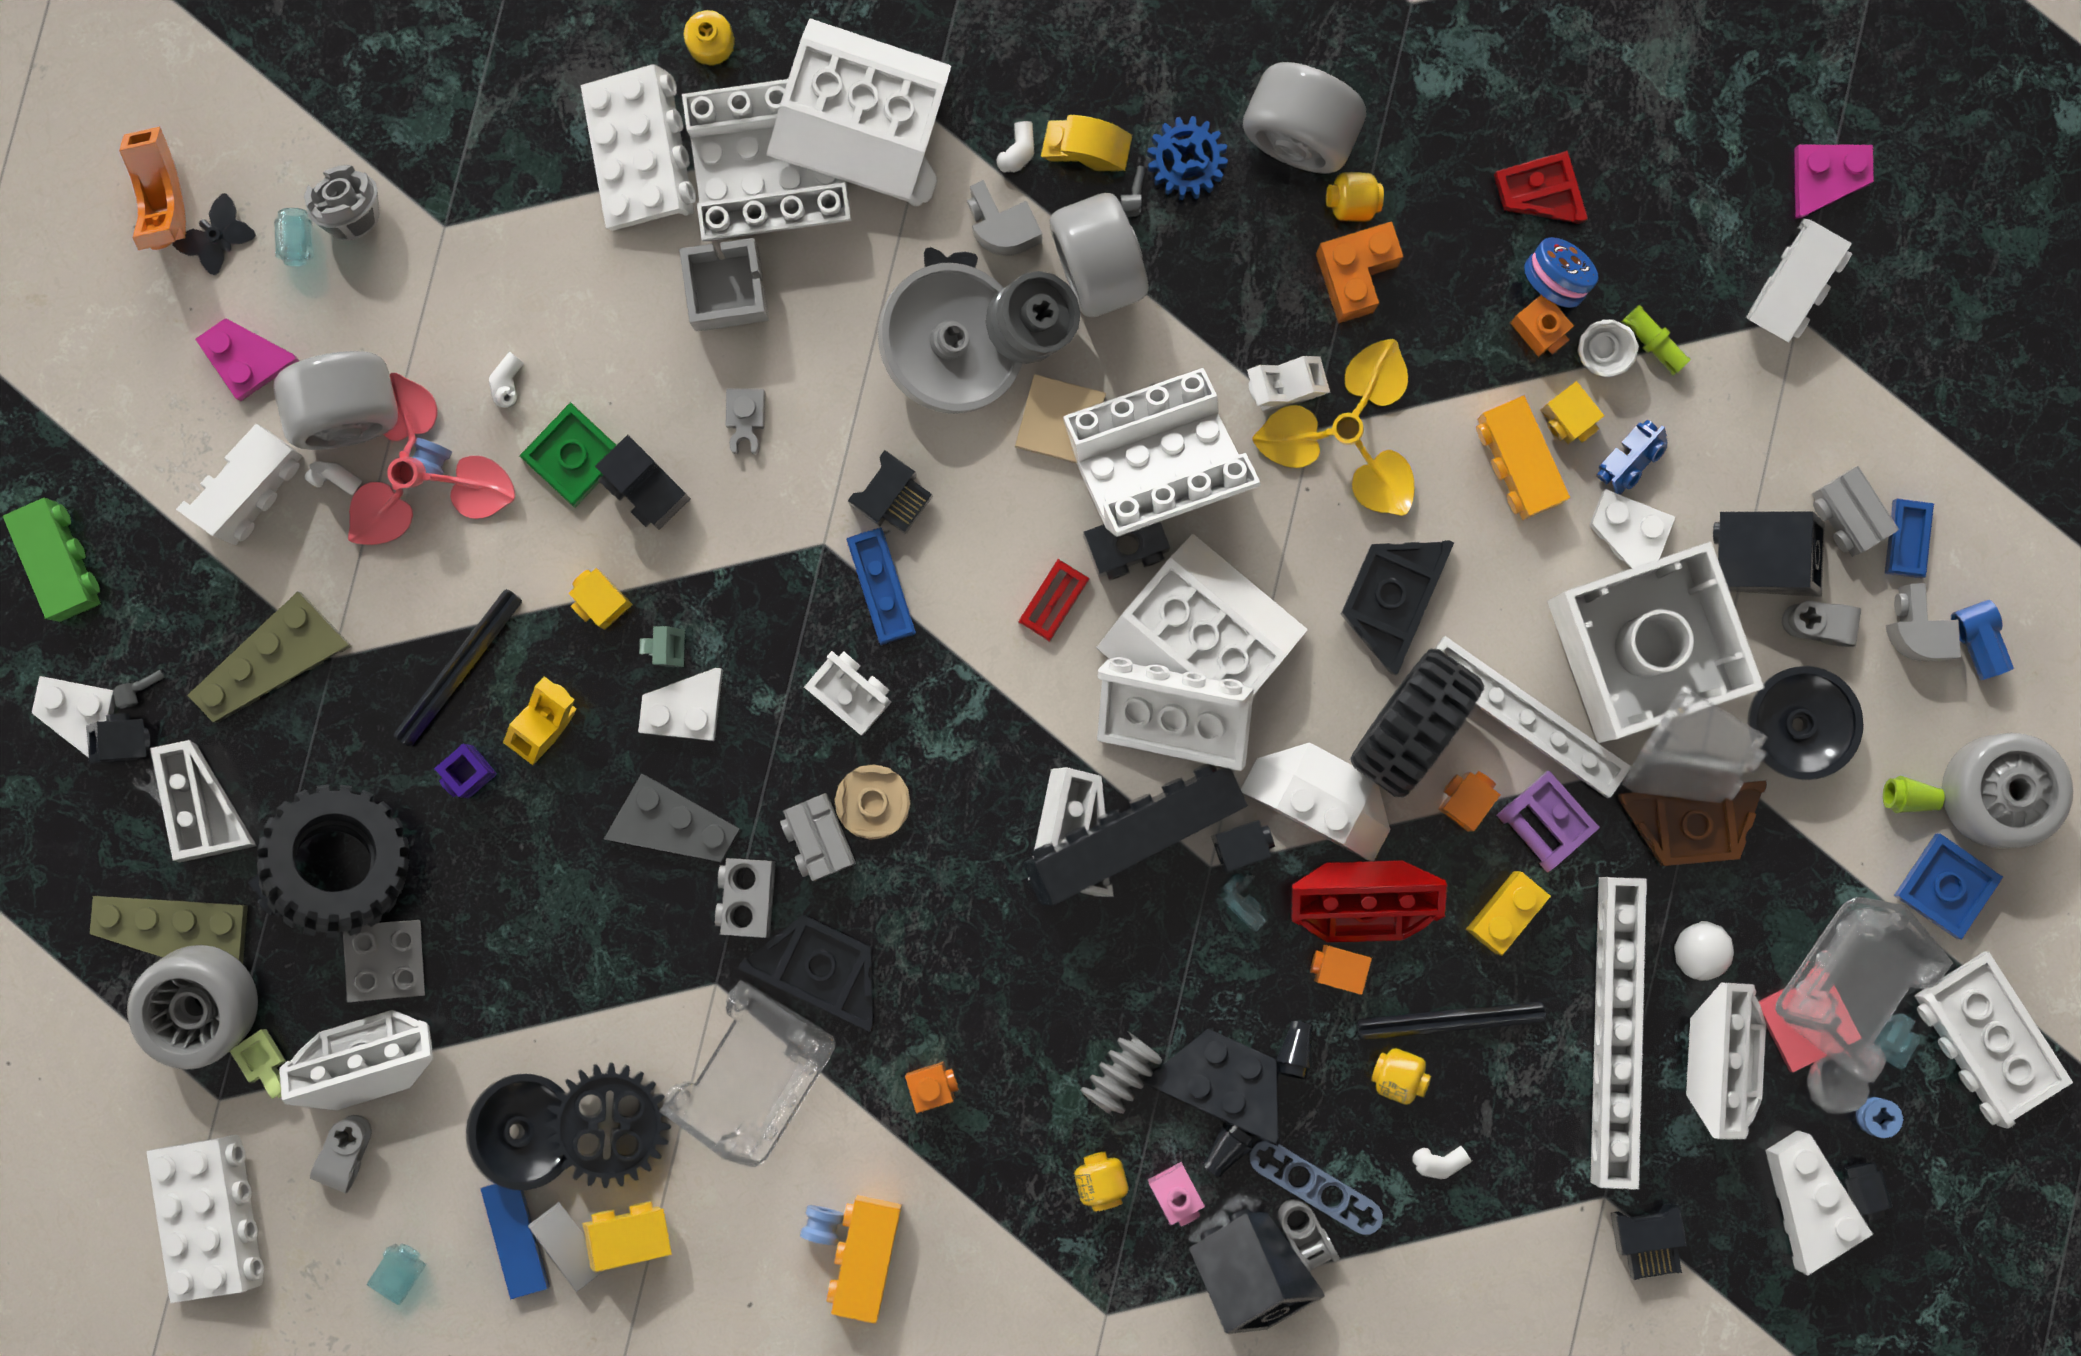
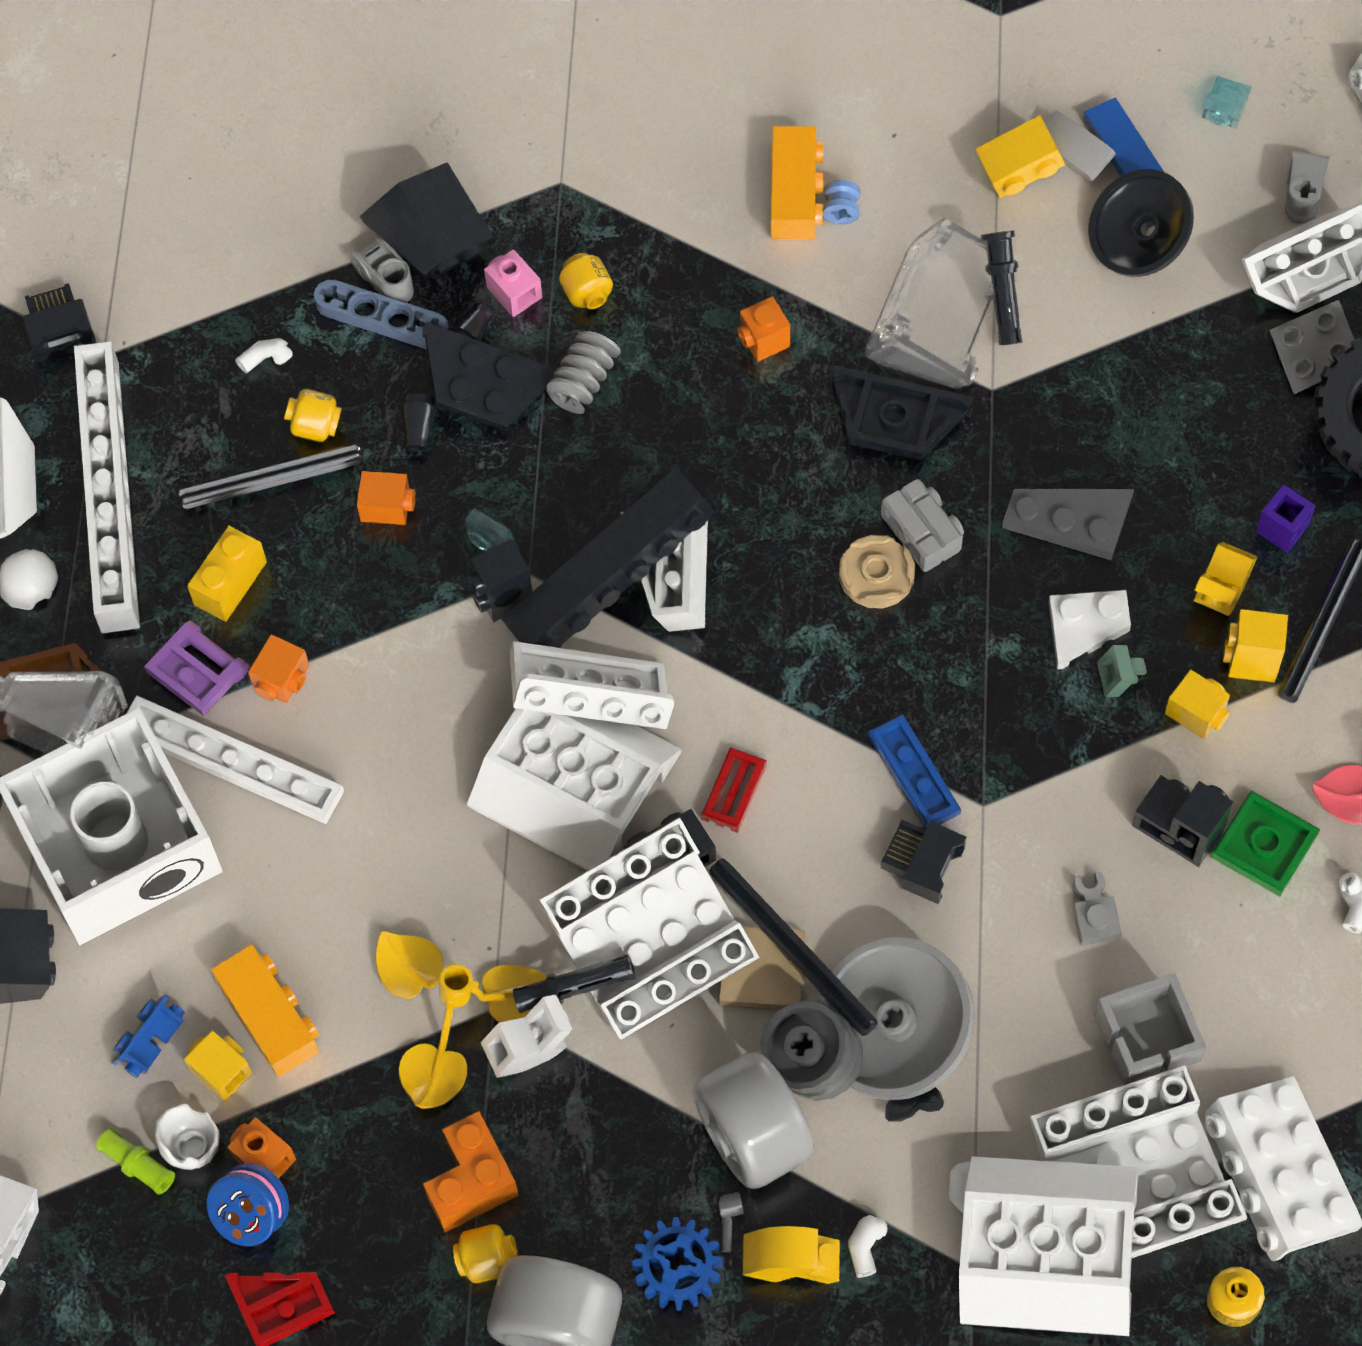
camera: 170 degrees right, 20 degrees down
(529, 638) = (1256, 645): none -> yellow brick
(572, 1124) = (1096, 238): black gear -> none
(678, 1096) = (1002, 268): none -> black pin
(757, 898) = (973, 460): light grey brick -> none
(848, 693) = (923, 661): white bracket -> none
(1002, 232) = (866, 1146): light grey brick -> none
(1030, 425) = (793, 947): none -> black axle
(1230, 422) = (575, 982): none -> black pin
(1322, 797) = (430, 646): white wedge -> none
(1368, 901) = (369, 561): red wedge -> none
(1393, 596) = (382, 853): black wing -> none
(1417, 723) = (342, 707): black tyre -> none
(1631, 528) = (140, 964): white wing -> none

